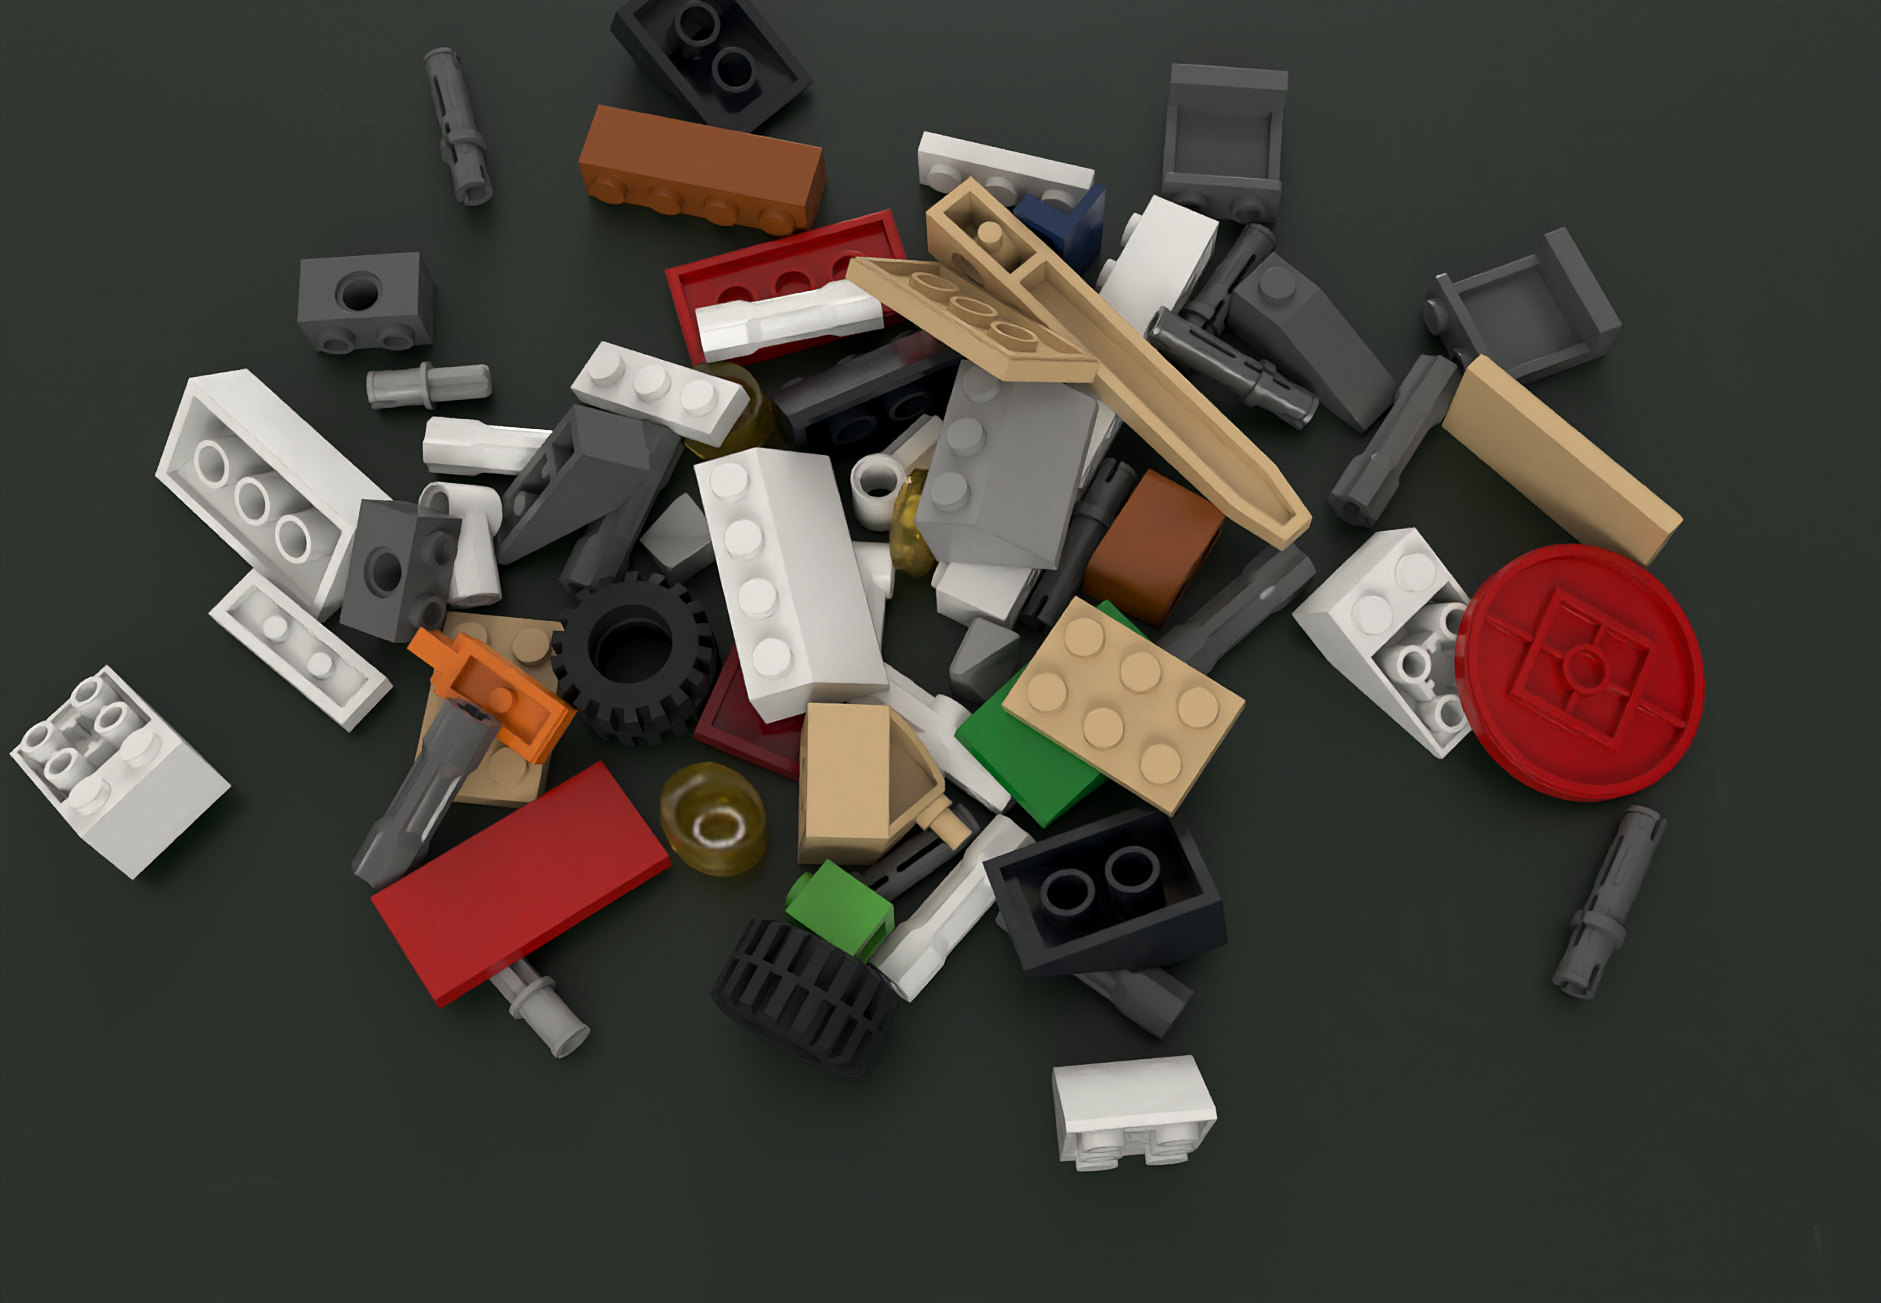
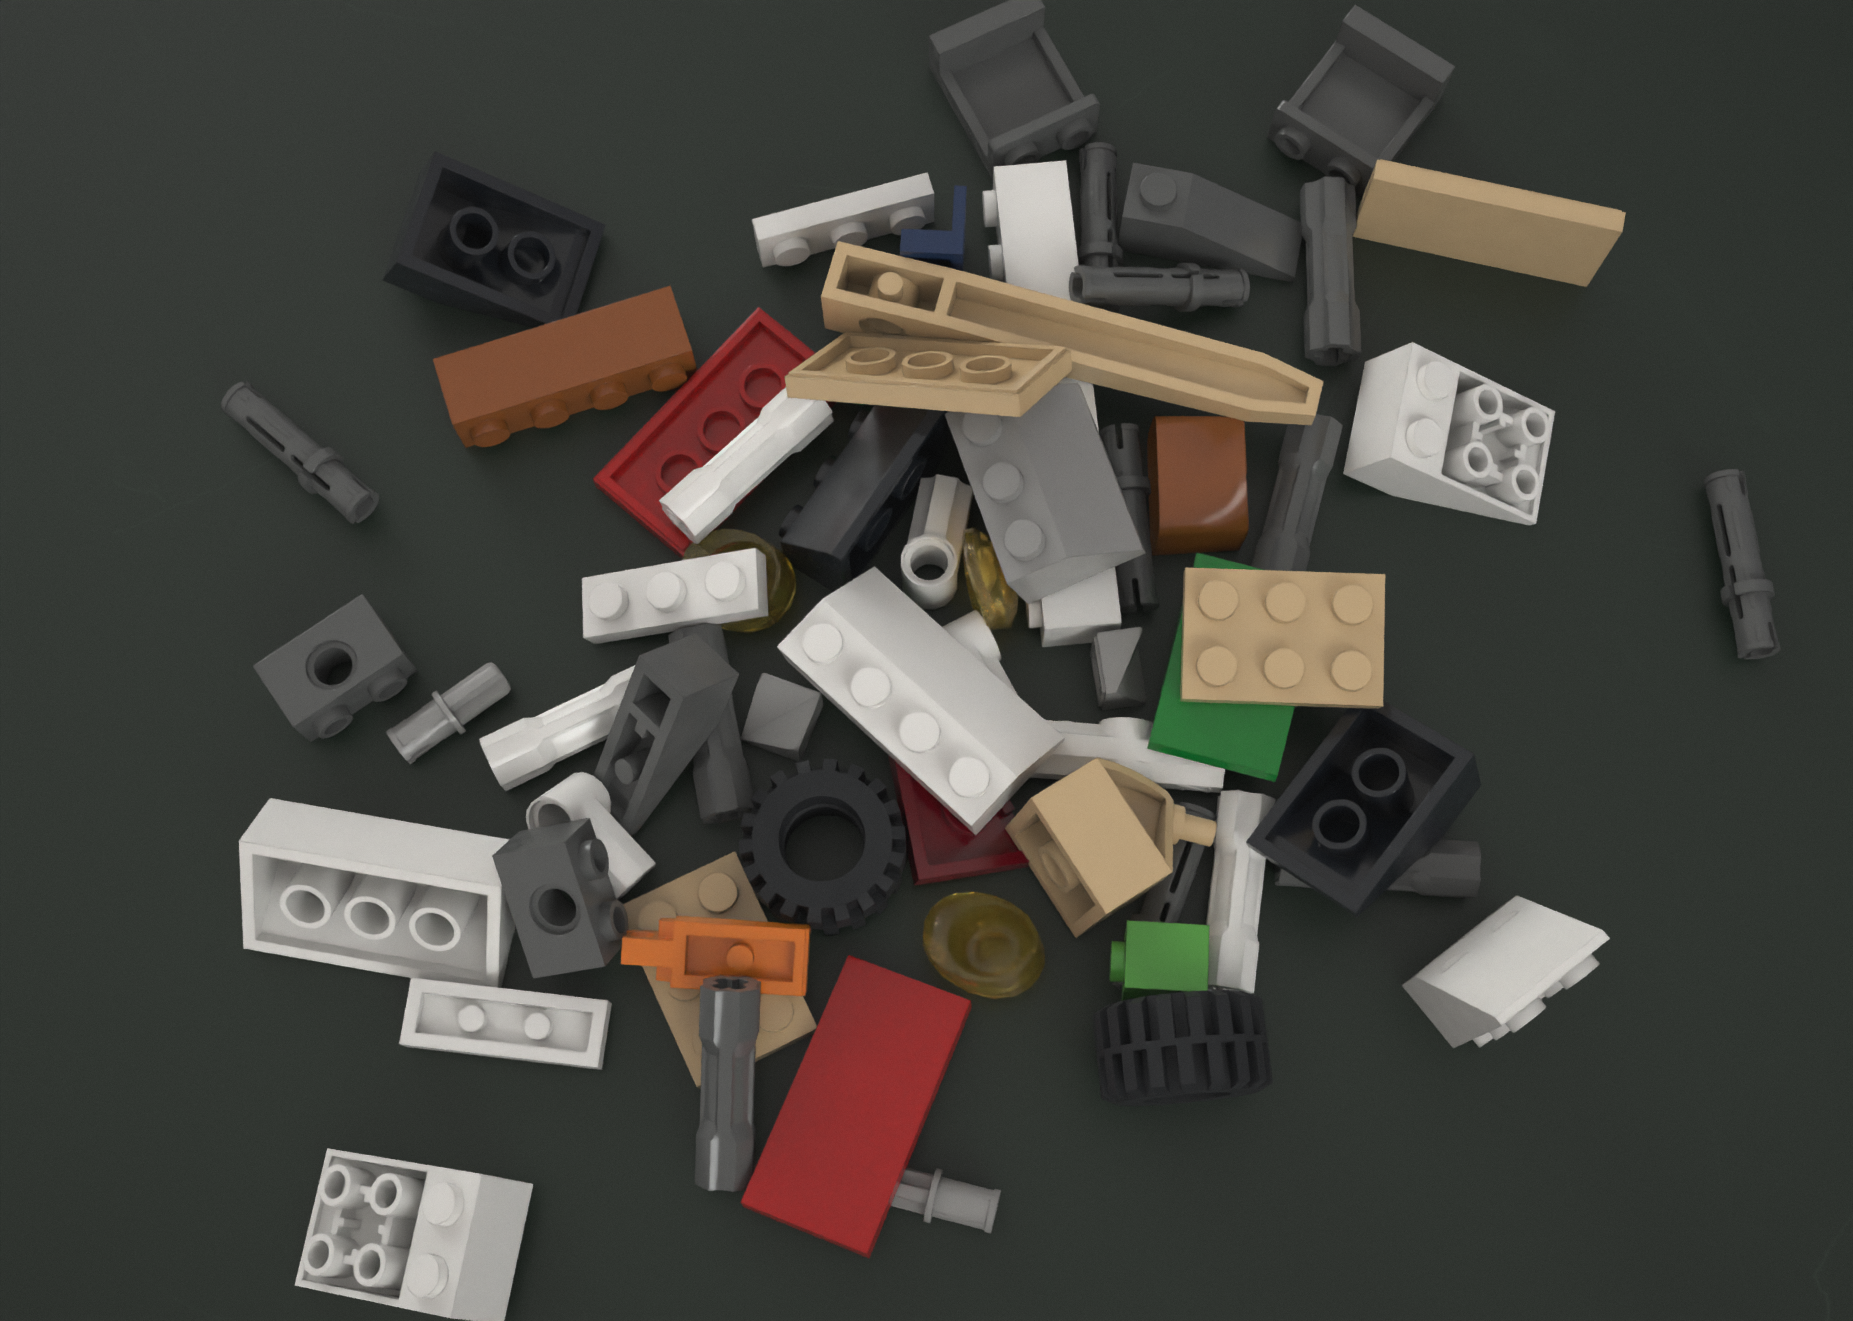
camera: 35 degrees left, 5 degrees up
(1579, 673) = (1603, 387): red plate -> none

